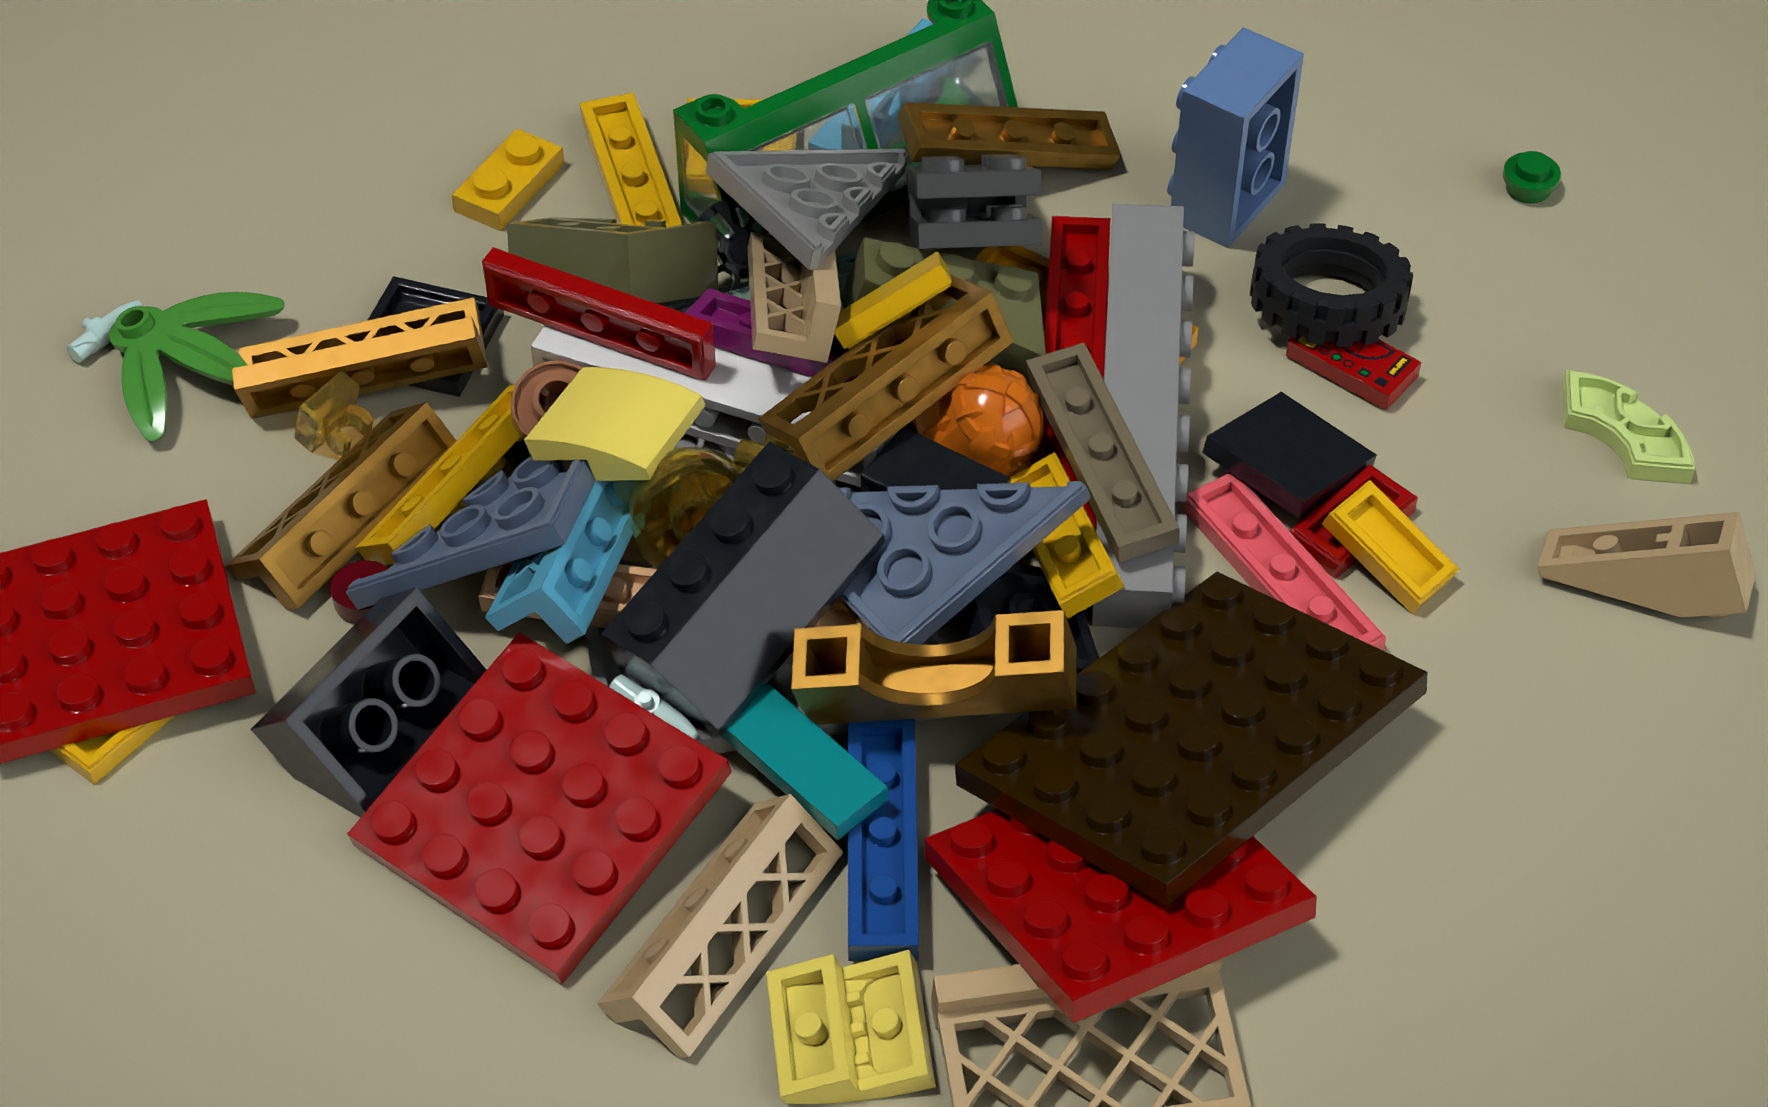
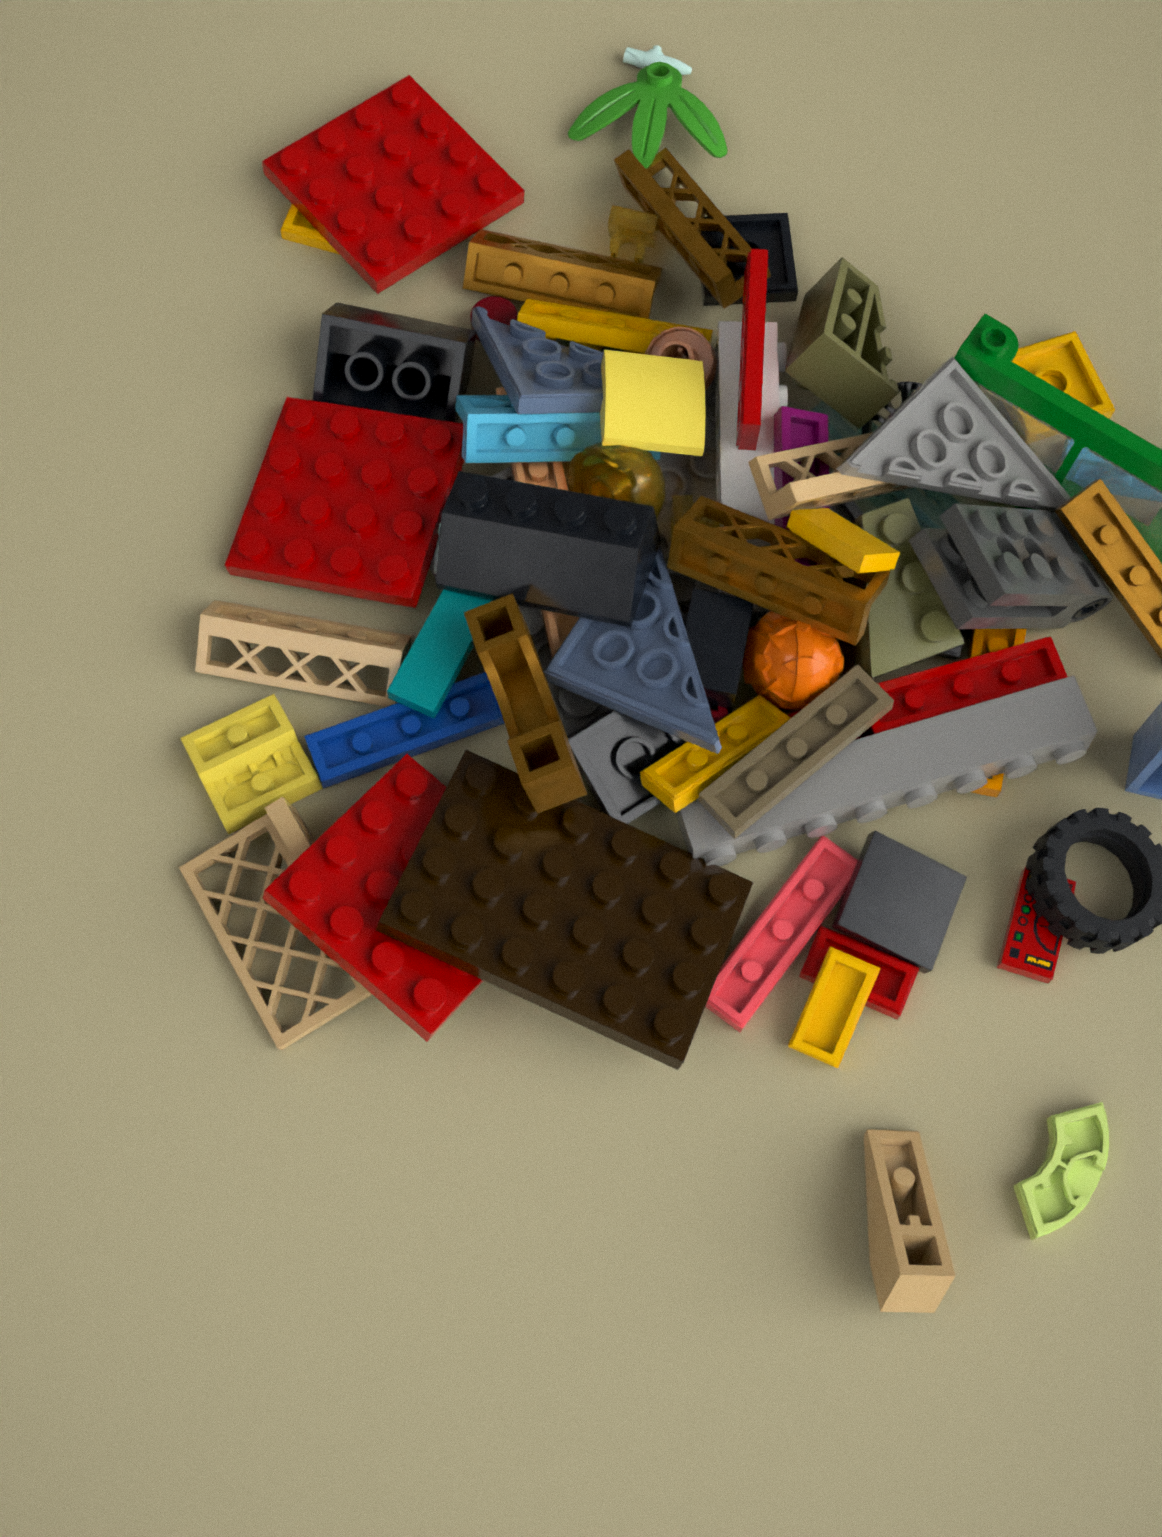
camera: 65 degrees right, 20 degrees up
(508, 179) = (929, 246): yellow plate -> none
(628, 161) = (1005, 298): yellow plate -> none

